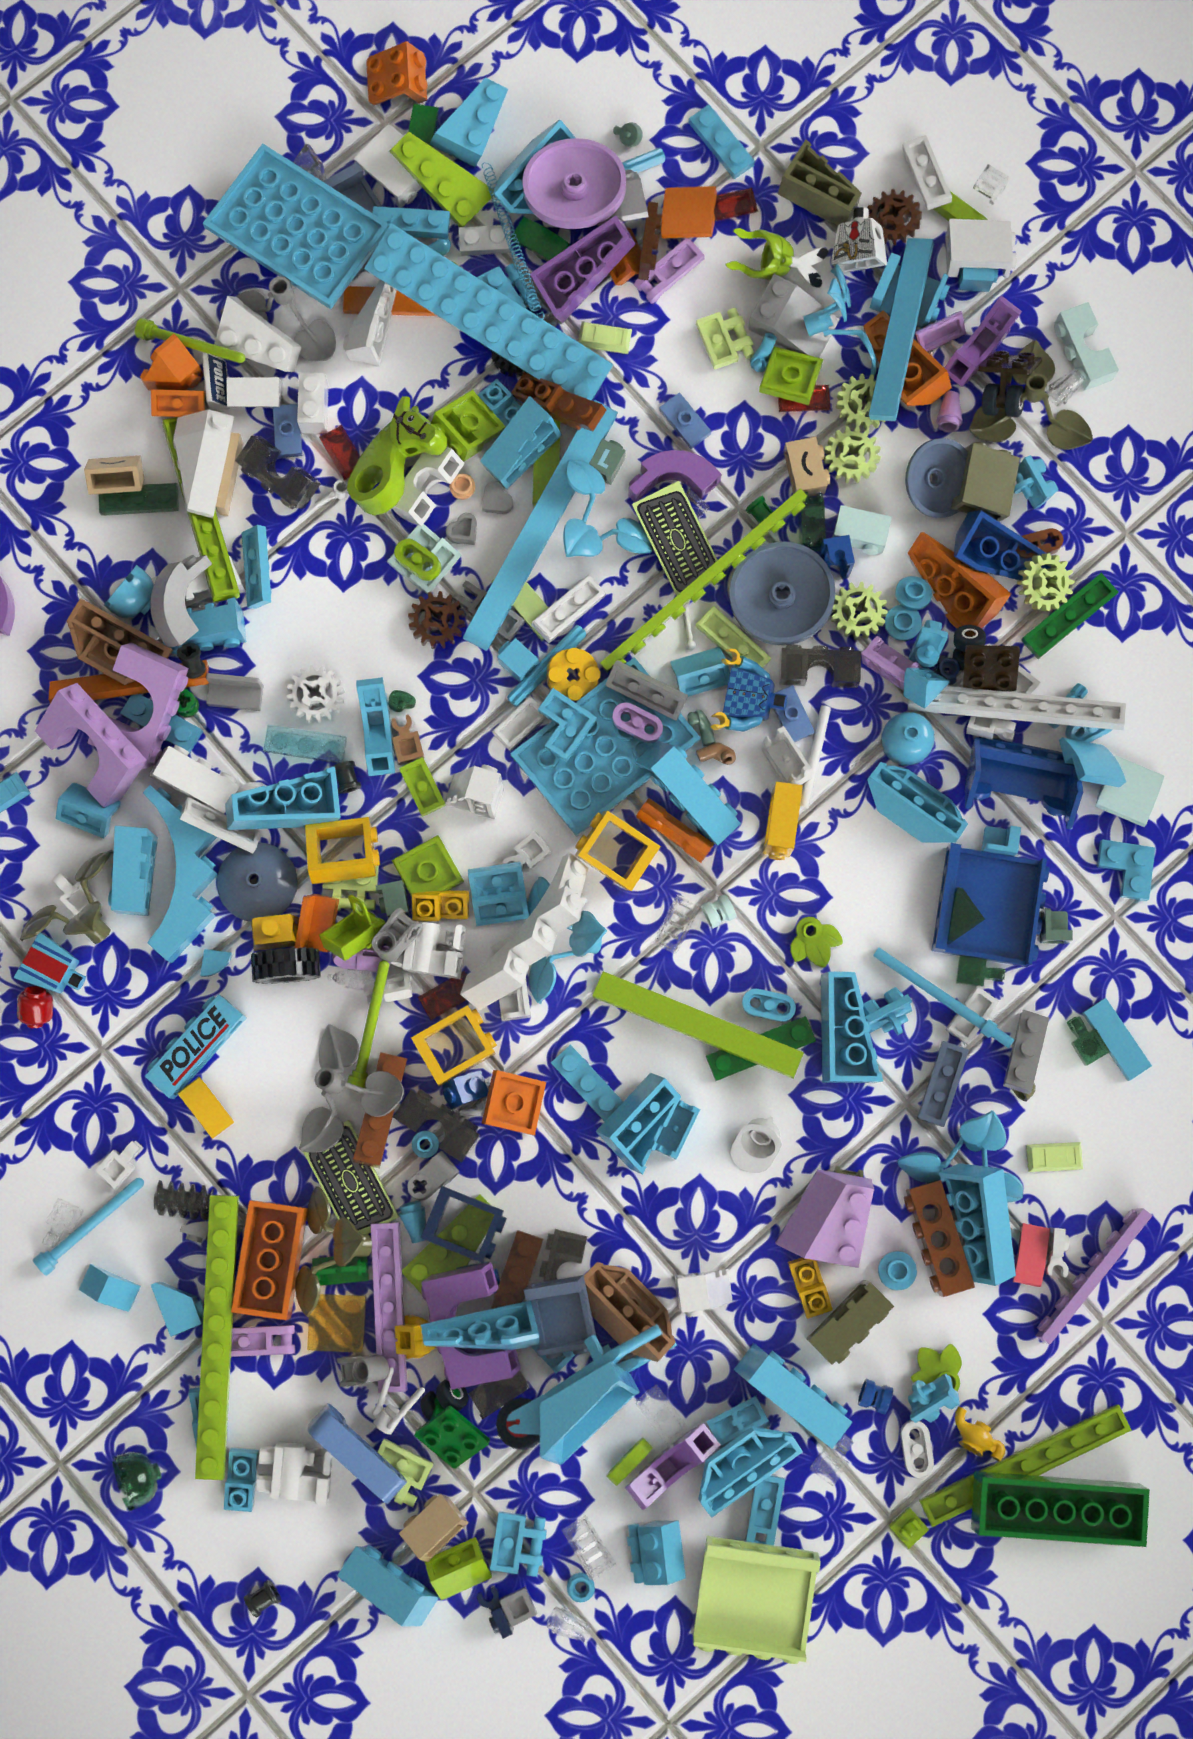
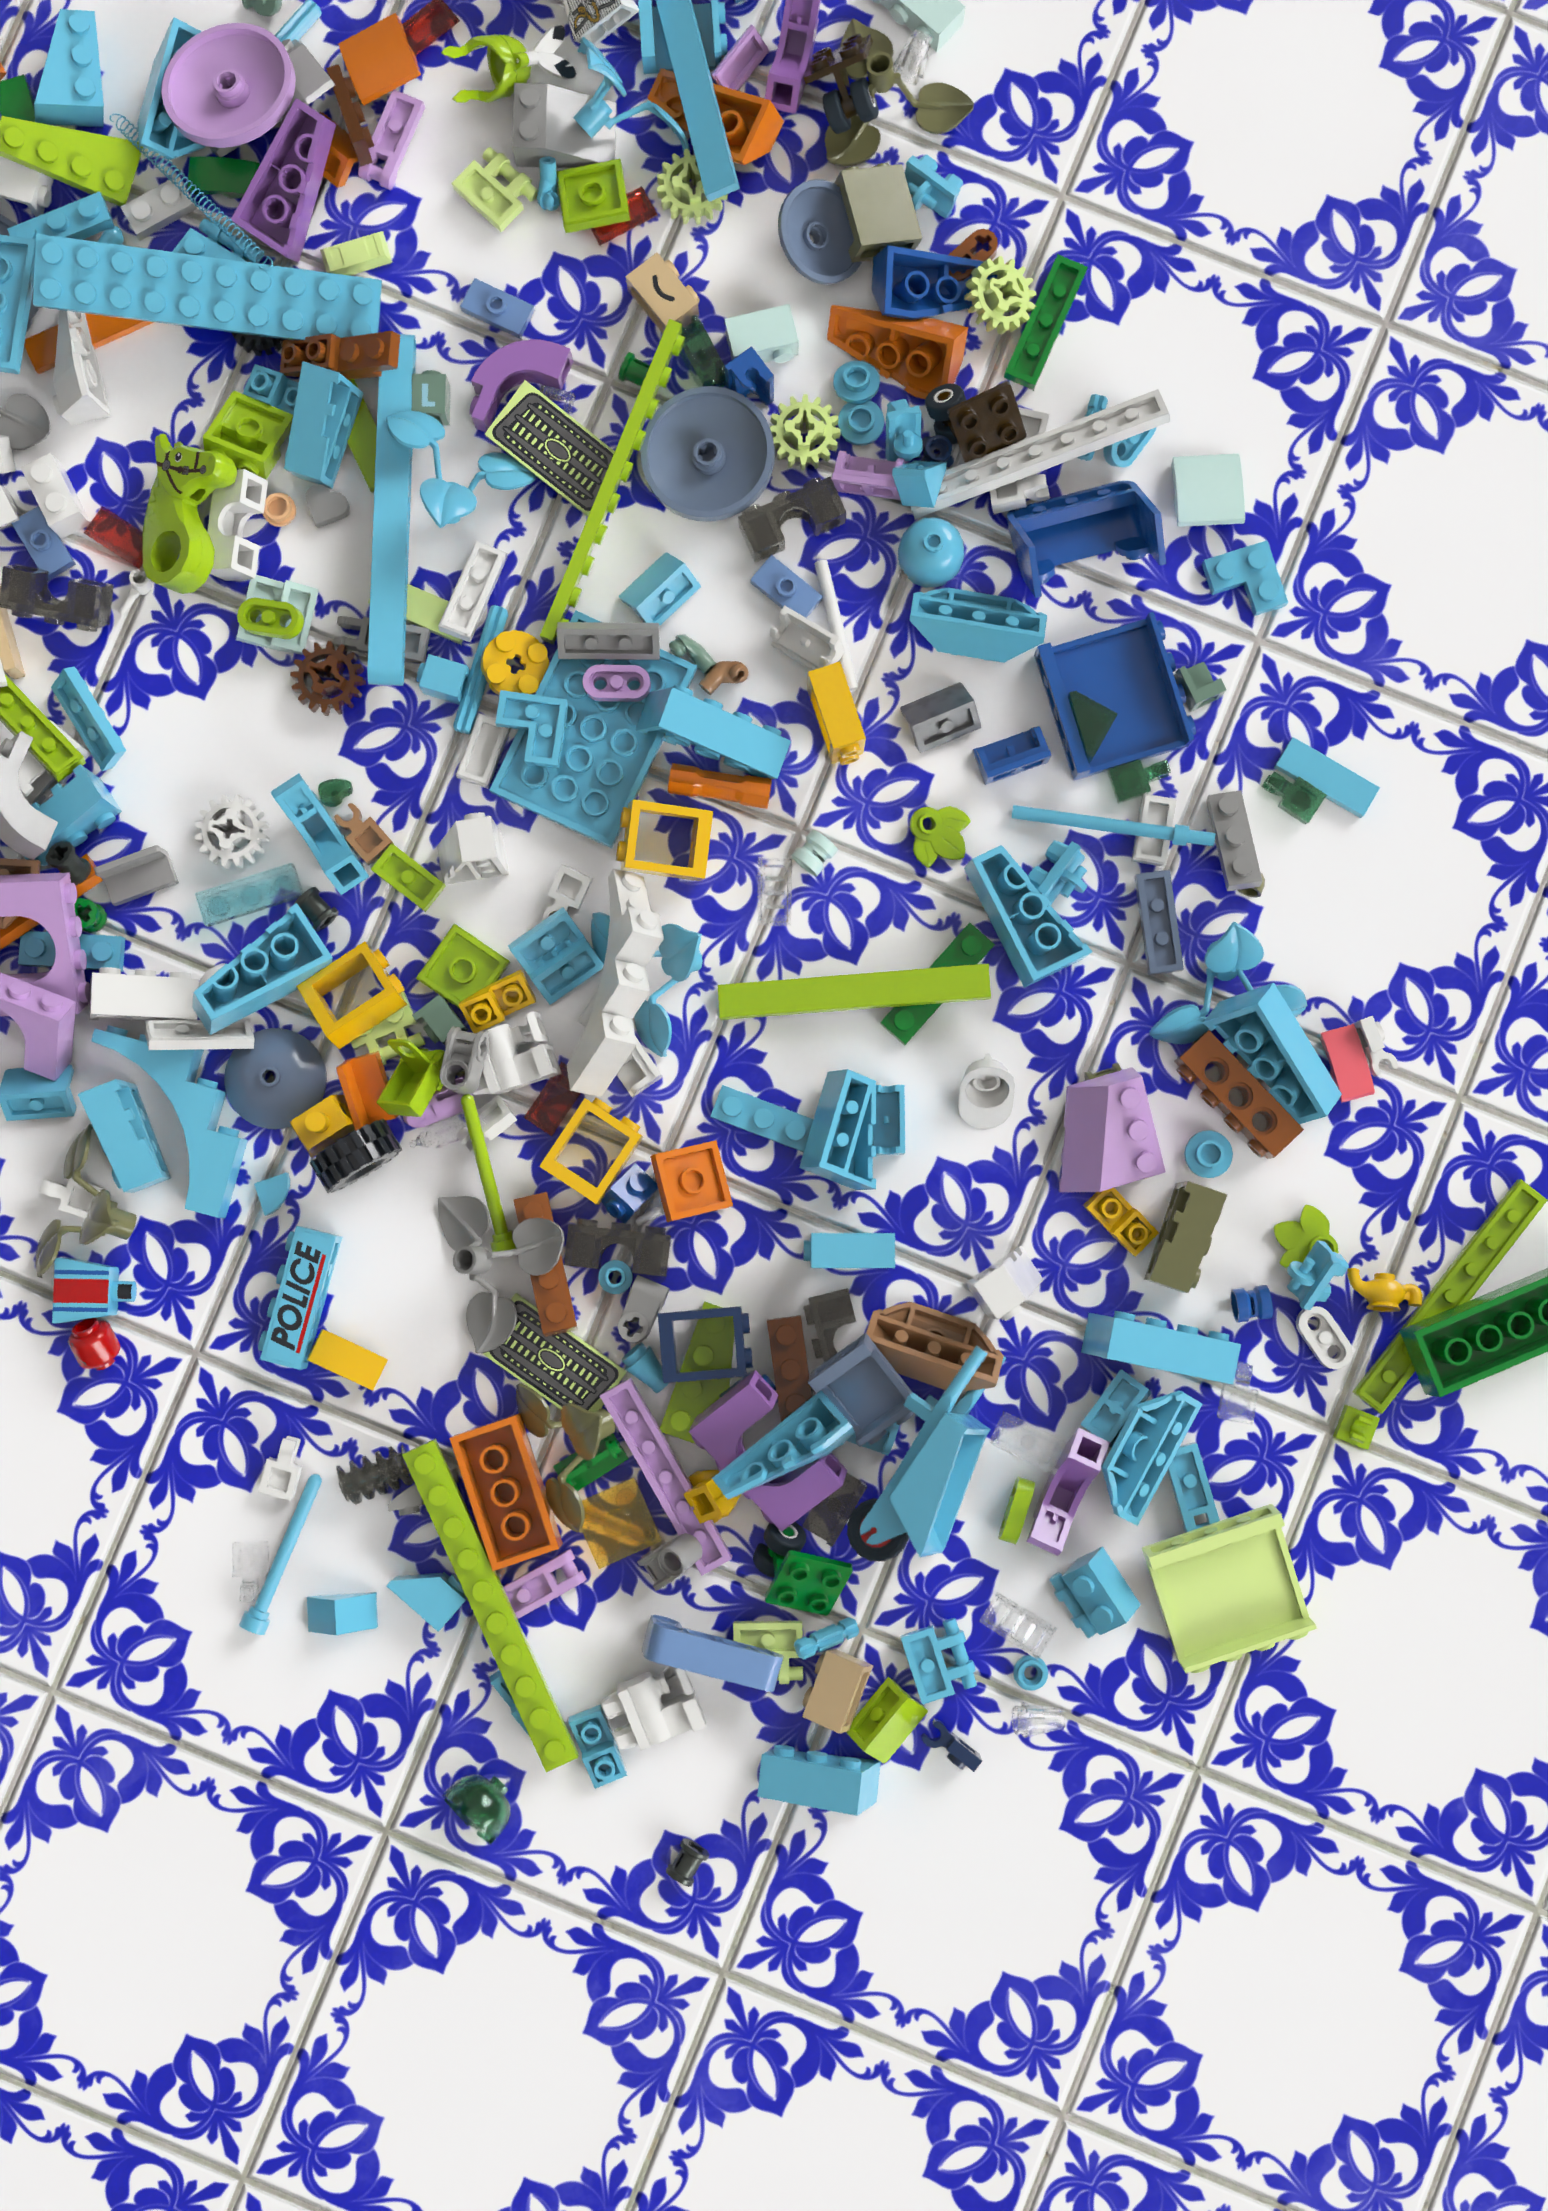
camera: 25 degrees left, 5 degrees up
(389, 1416) = (727, 1595): white plant -> none
(445, 1484) = (826, 1638): none -> medium azure axle
(463, 530) = (305, 560): light grey tile -> none
(518, 1606) = (973, 1728): light grey tile -> none
(602, 1210) = (850, 1250): none -> medium azure window
(690, 644) = (632, 564): white hinge -> none
(729, 636) = (679, 538): yellowish green tile -> none
(747, 696) = (726, 590): torso -> none
(768, 1005) = (921, 929): medium azure plate -> none
(854, 443) = (713, 267): yellowish green gear -> none
(857, 858) = (941, 716): none -> flat silver panel
(895, 911) = (1012, 755): none -> blue hinge
(950, 414) = (797, 154): lavender cone -> none
(1001, 840) = (1092, 616): medium azure panel -> none
(1054, 1157) = (1320, 942): yellowish green tile -> none
(1087, 1282) = (1428, 1039): lavender plate -> none
(1092, 762) = (1152, 476): medium azure slope -> none

